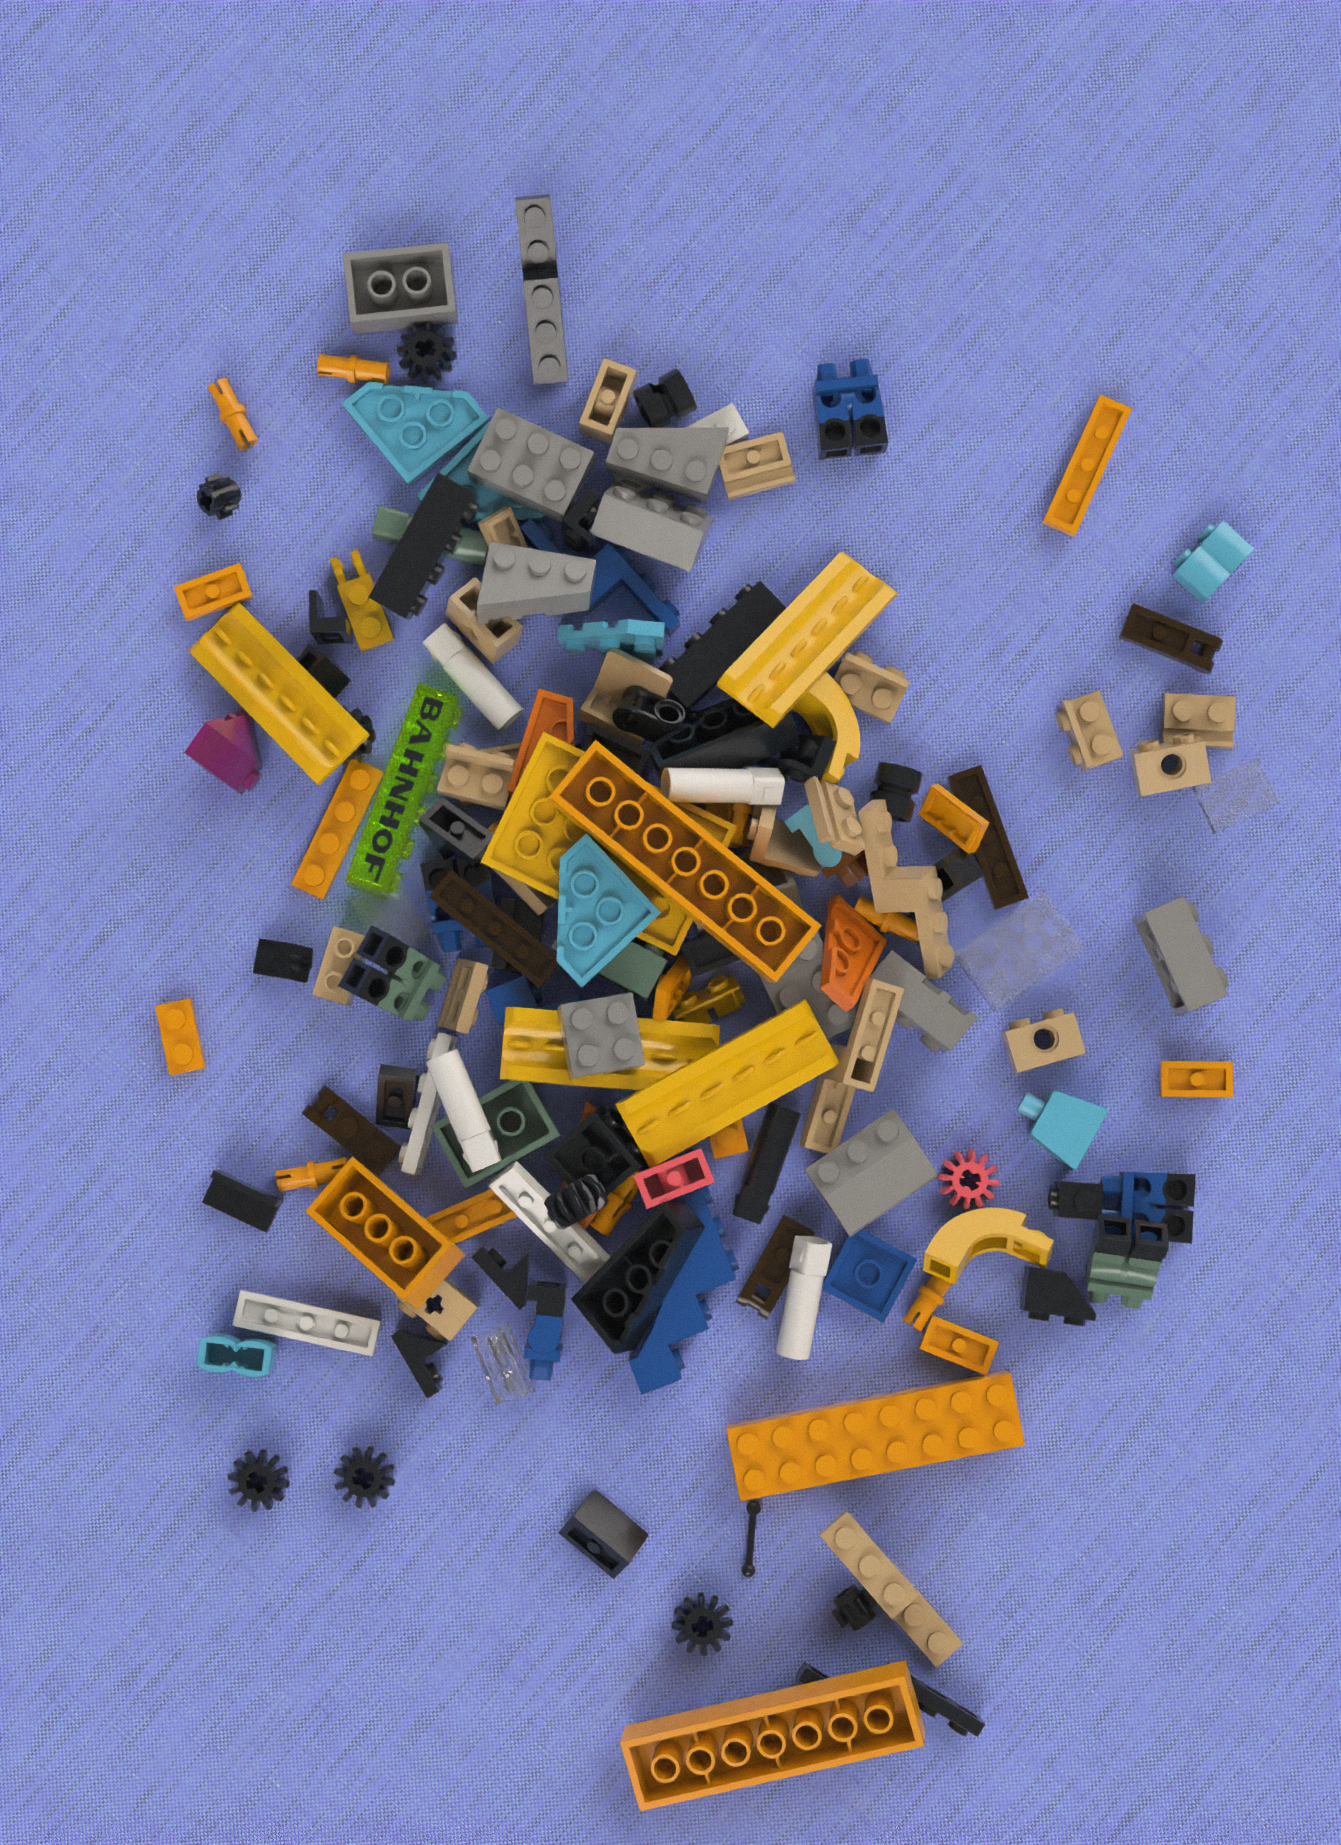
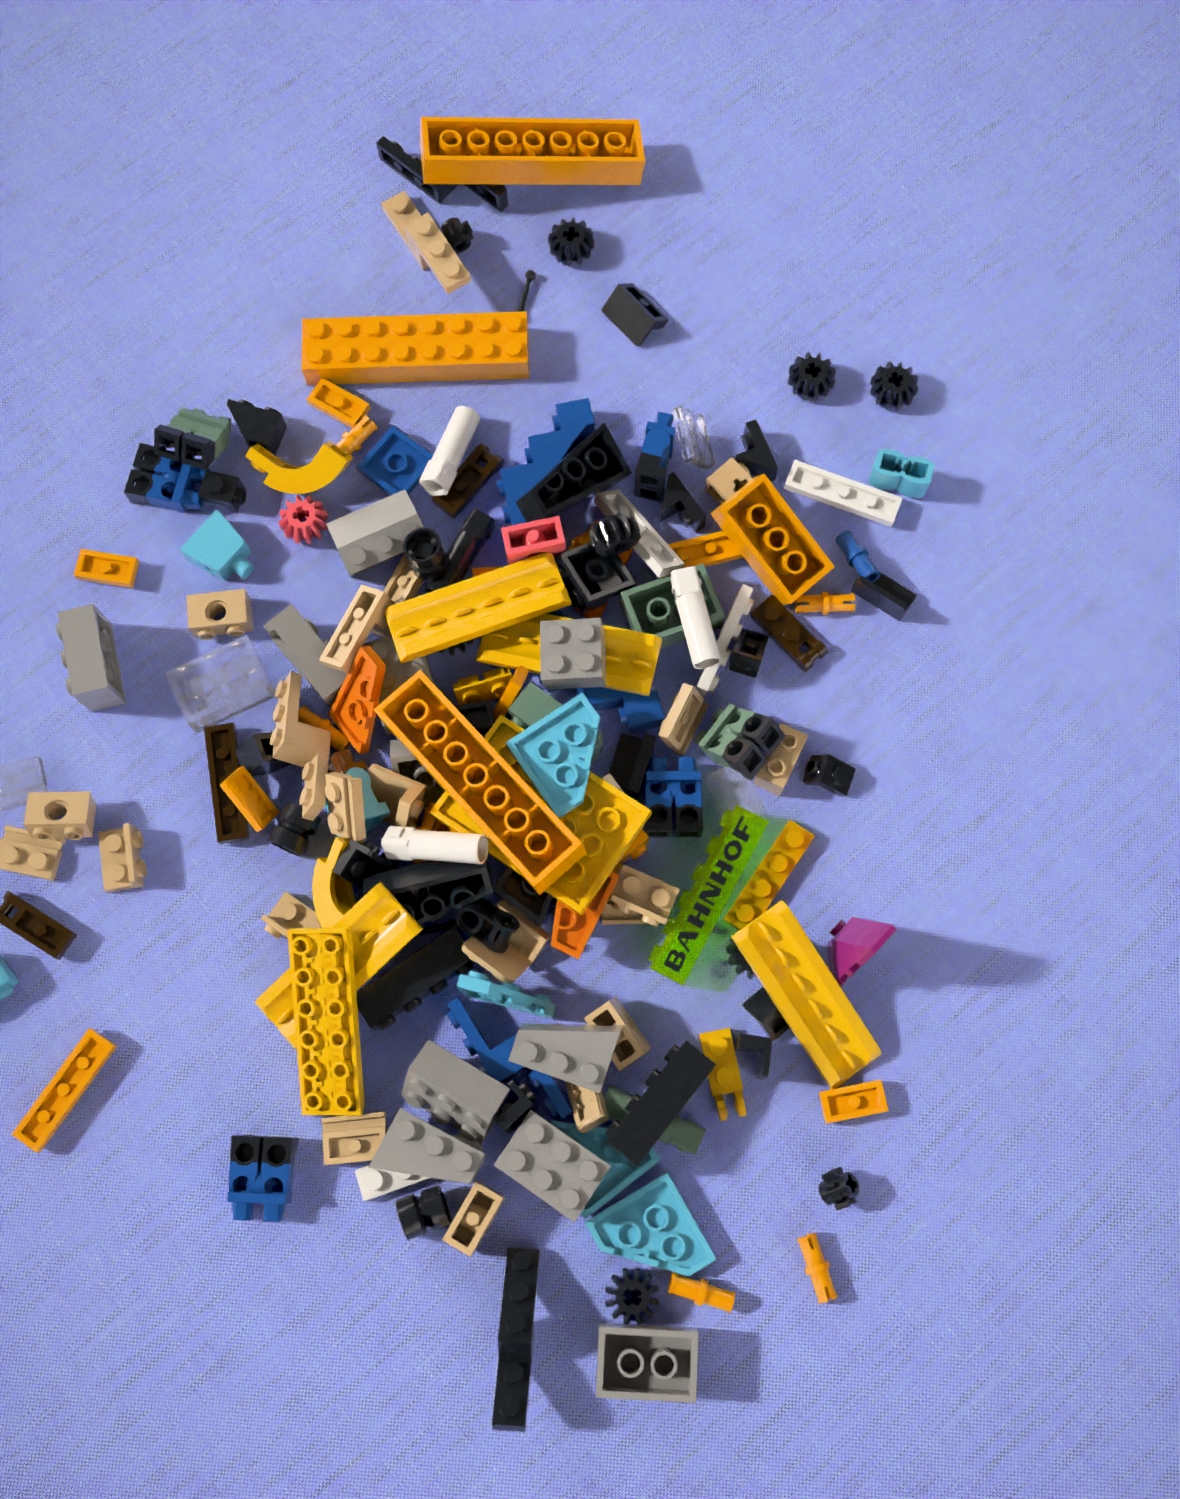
camera: 165 degrees left, 10 degrees down
(180, 1037) = (921, 727): light orange plate -> none
(279, 1237) = (857, 556): none -> blue pin
(455, 832) = (668, 850): black slope -> none
(473, 677) = (634, 986): white piece -> none
(495, 928) = (648, 763): dark brown plate -> none
(803, 1144) = (425, 554): none -> black wheel
(808, 577) = (326, 1021): none -> yellow plate

